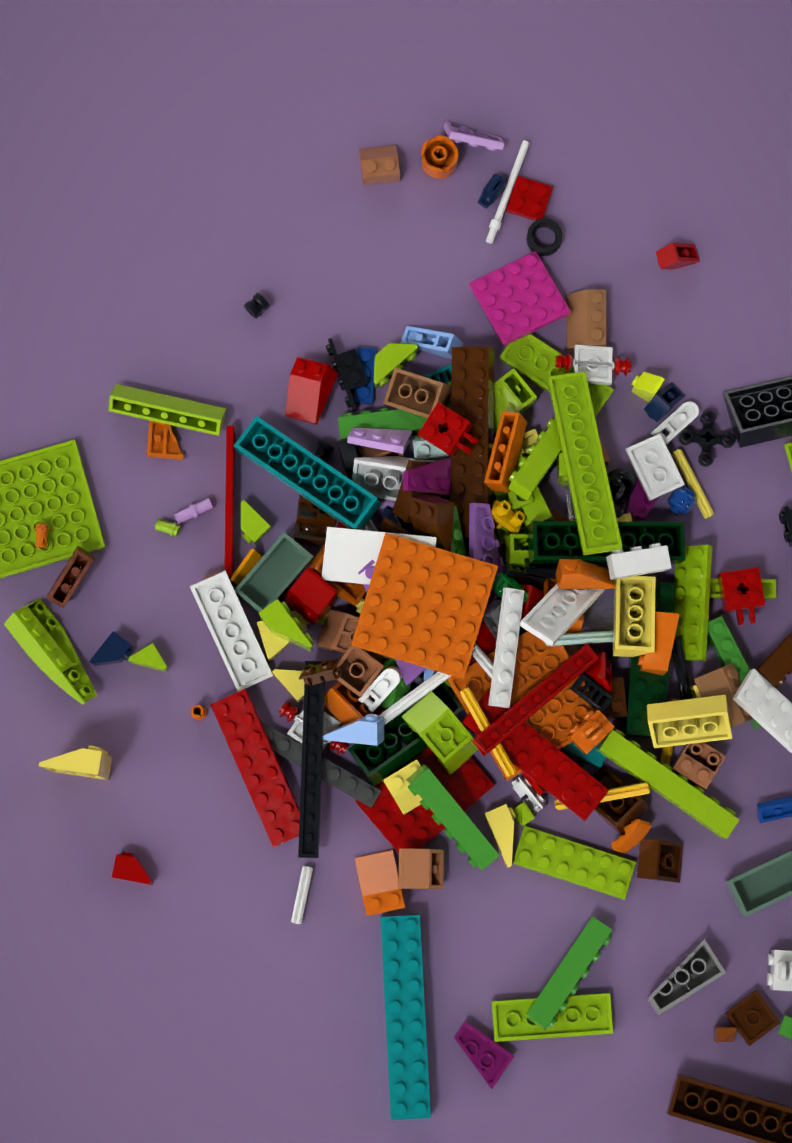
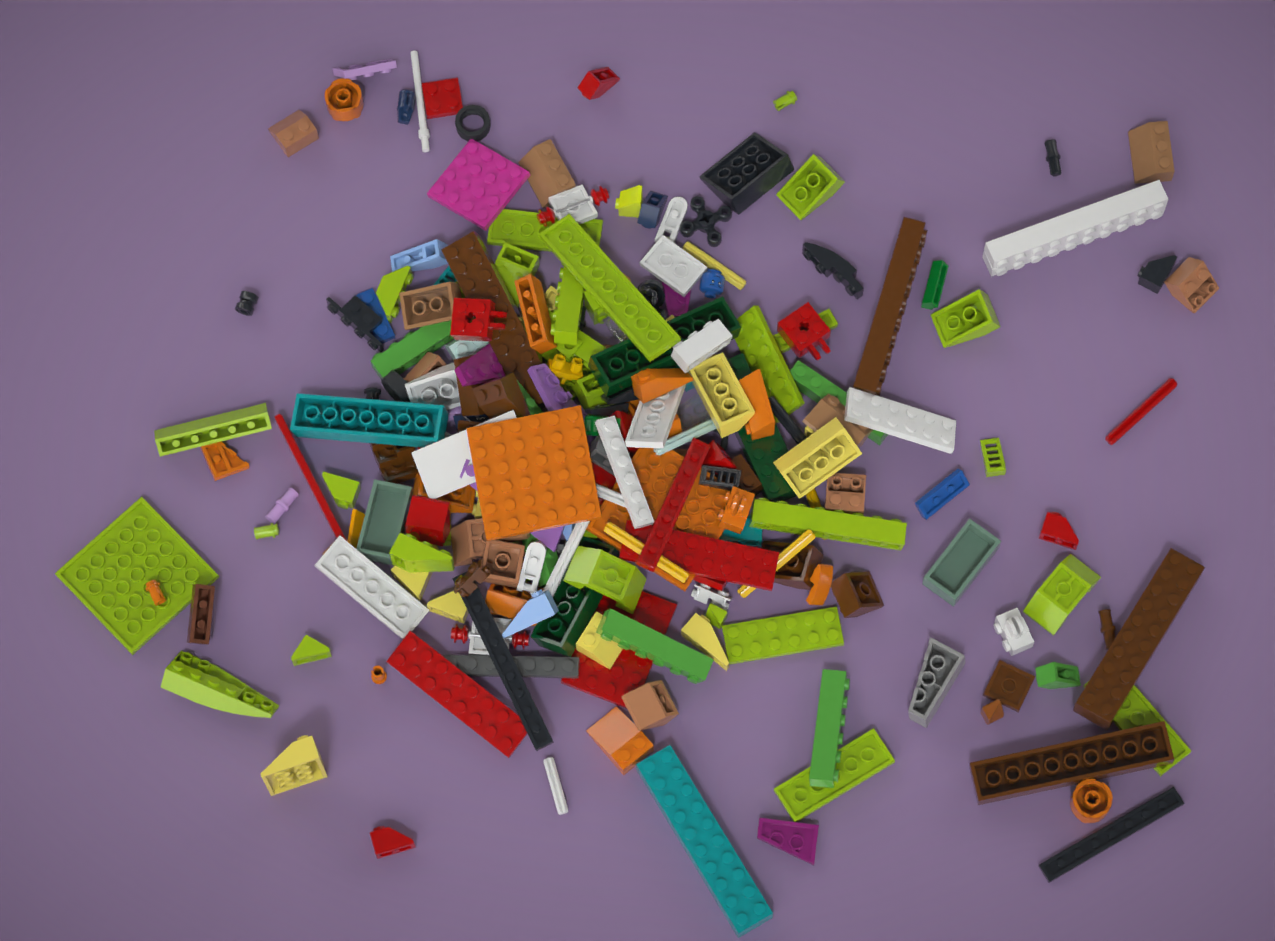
camera: 25 degrees left, 10 degrees down
(112, 651) = (273, 661): dark blue slope -> none
(309, 390) = (332, 350): red slope -> none
(382, 439) = (417, 358): lavender wing -> none

